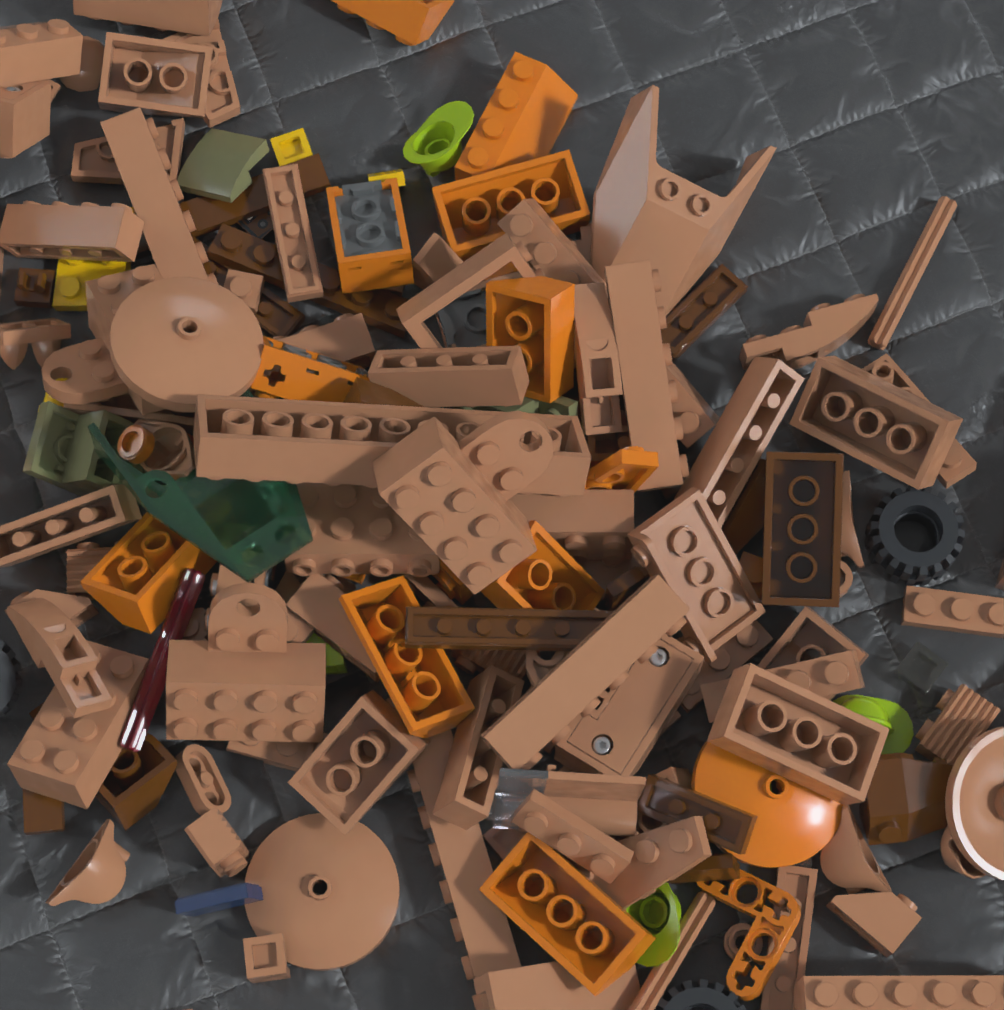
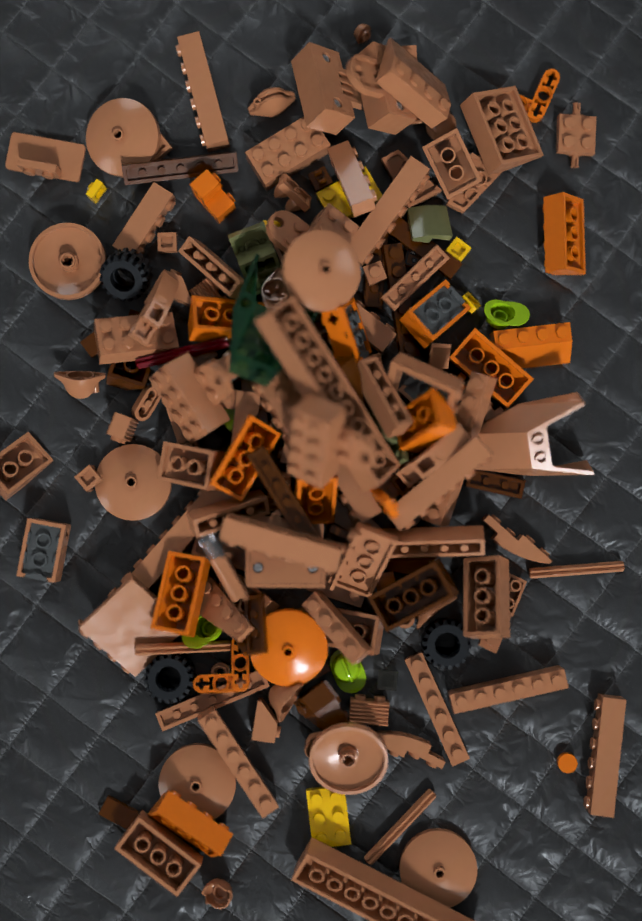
camera: 60 degrees right, 15 degrees up
(135, 444) = (270, 276): orange tile -> none
(218, 899) = (100, 443): dark blue tile -> none
(572, 836) = (211, 578): nougat plate -> none
(798, 734) = (312, 650): nougat brick -> none

